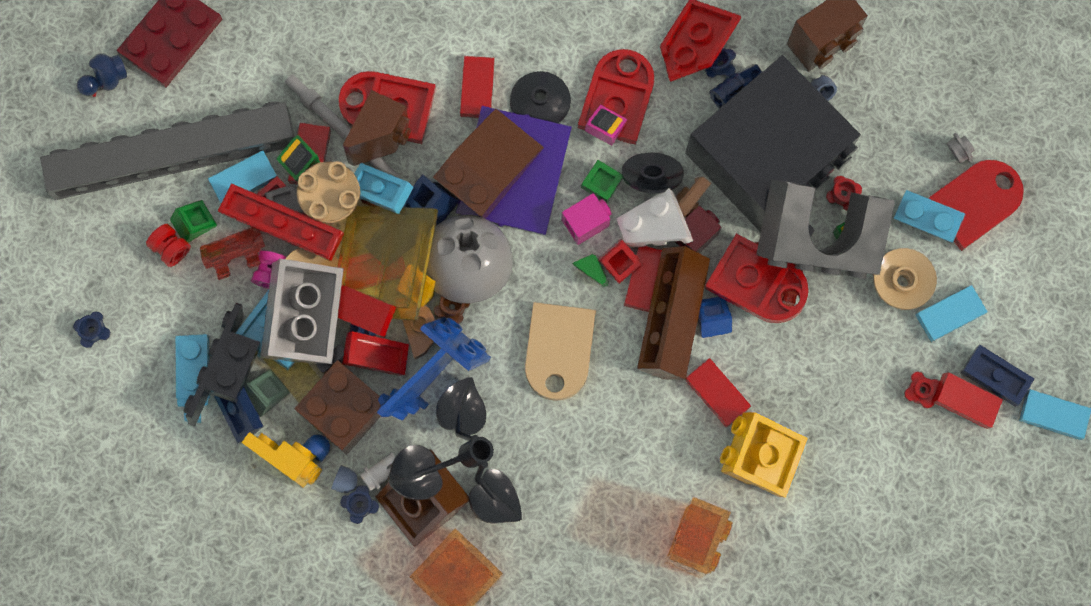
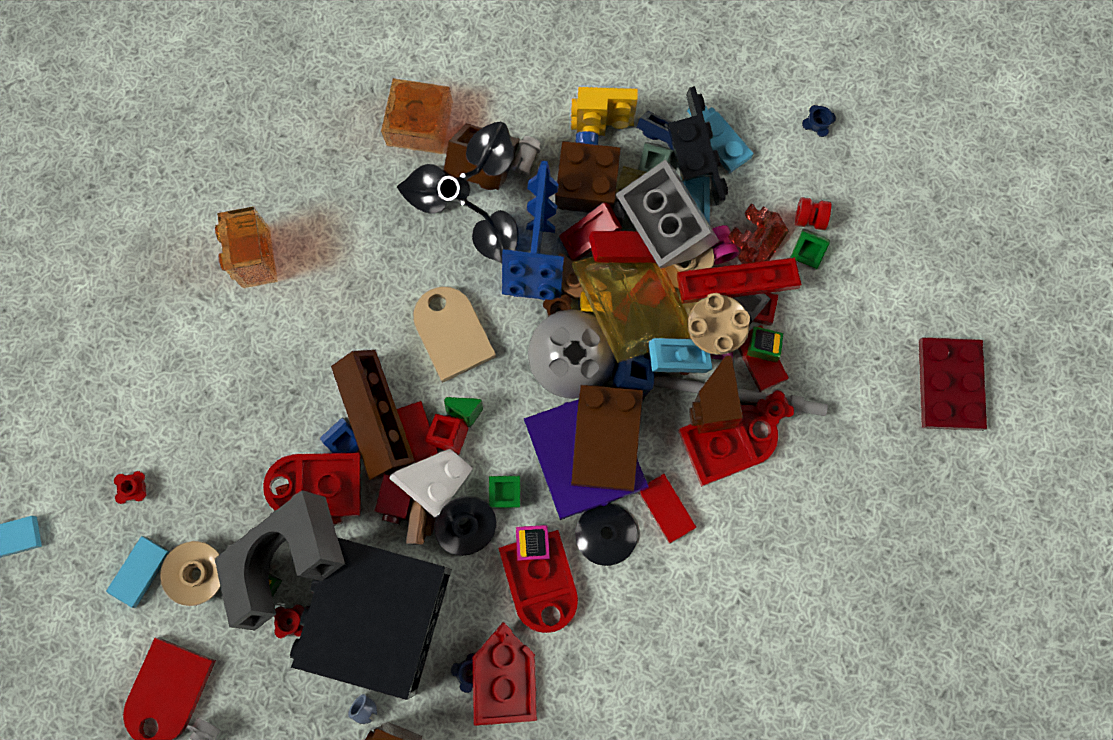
camera: 150 degrees right, 0 degrees up
(107, 74) = (972, 314): dark blue animal -> none
(167, 150) = (871, 286): dark grey brick -> none
(248, 174) = (798, 307): medium azure tile -> none
(330, 103) = (778, 399): none -> red plate
(345, 480) = (548, 133): sand blue hinge -> none
(360, 495) = (526, 117): dark blue plate -> none
(586, 218) = (496, 450): dark pink brick -> none
(718, 392) = (301, 379): red tile -> none
(735, 83) = (439, 659): dark blue hinge -> none
(763, 453) = (235, 349): yellow plate -> none
(929, 216) = (199, 646): medium azure plate -> none
(967, 400) = (86, 501): red tile -> none
(997, 375) = (70, 540): dark blue plate -> none

